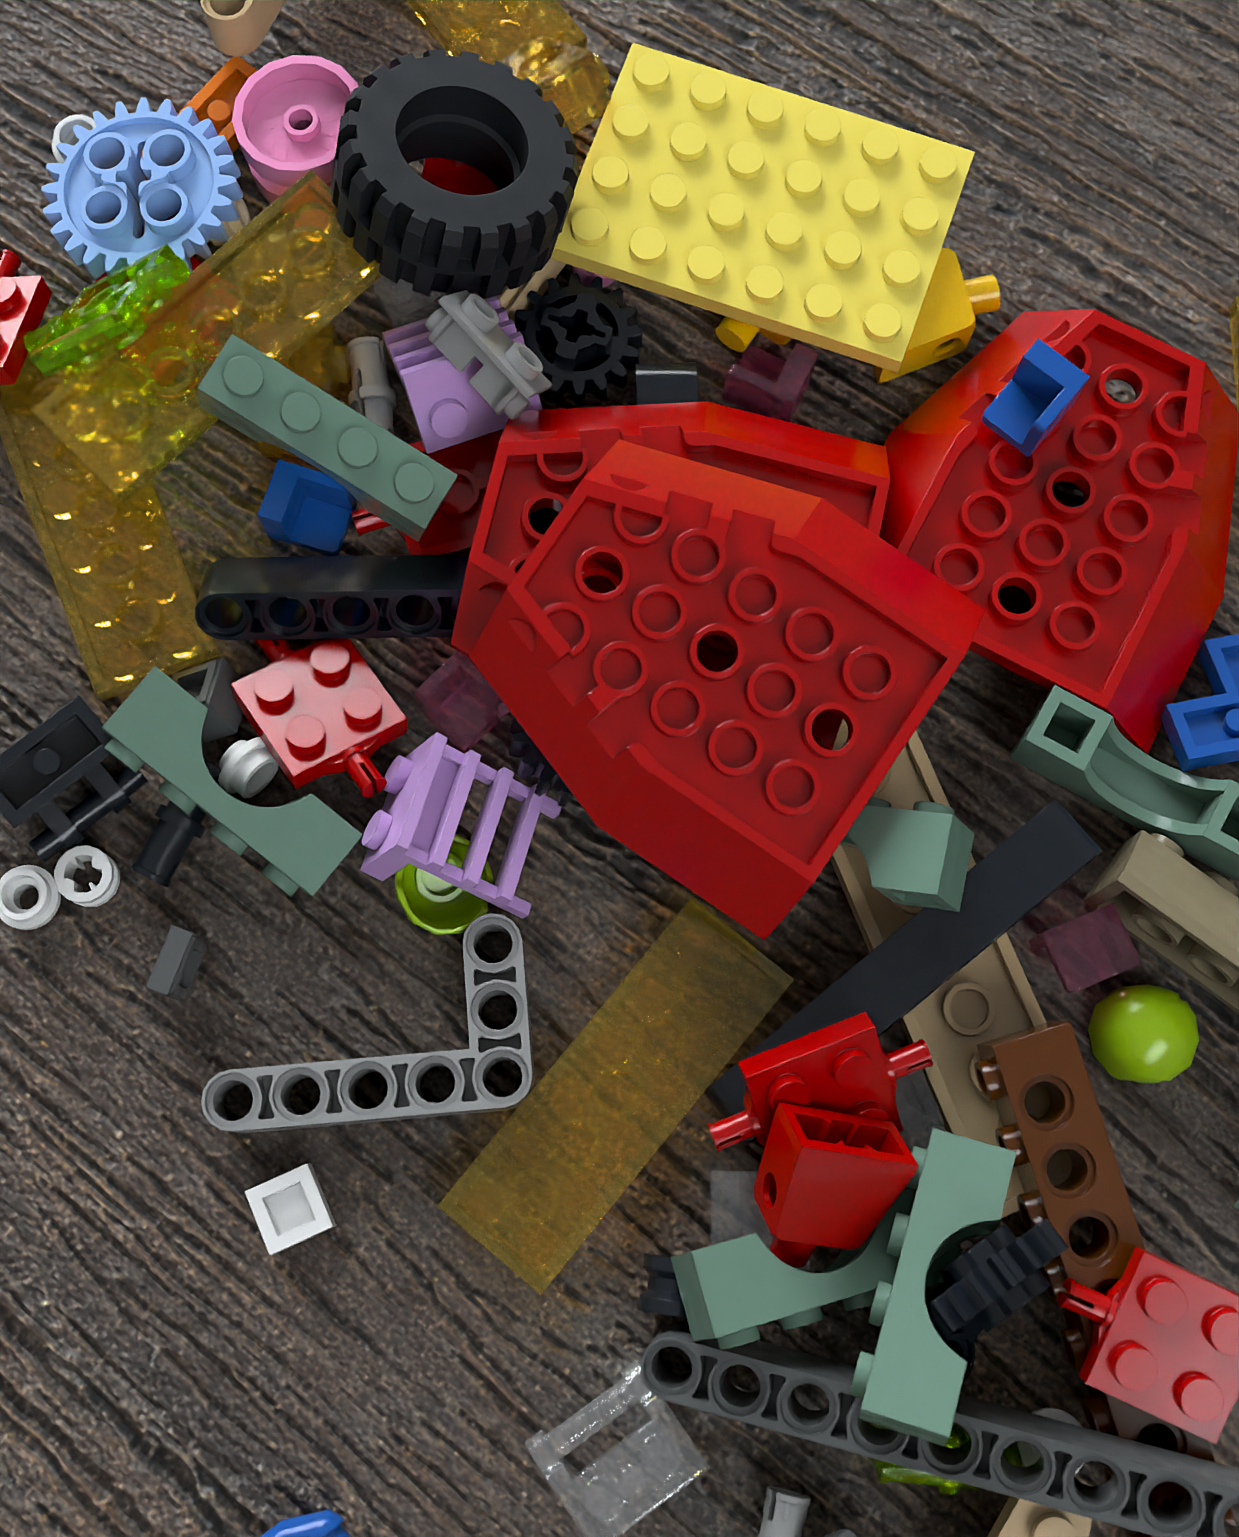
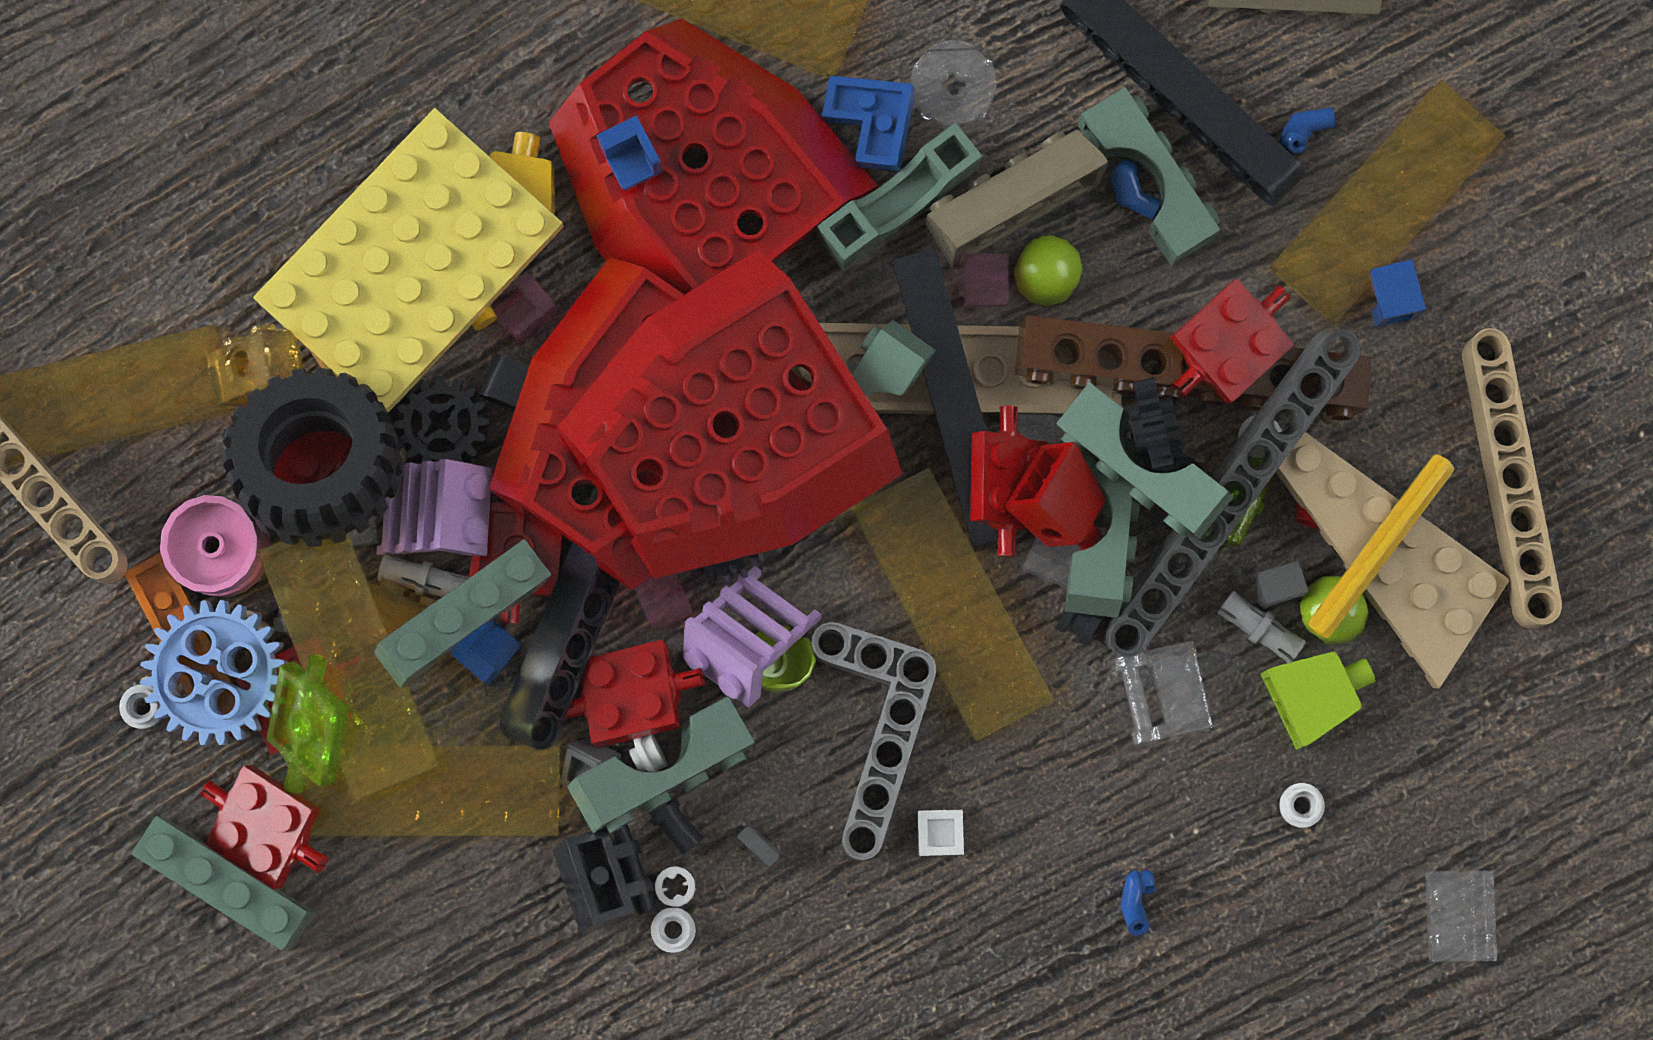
camera: 70 degrees left, 5 degrees up
(470, 329) = (432, 488): light grey hinge -> none

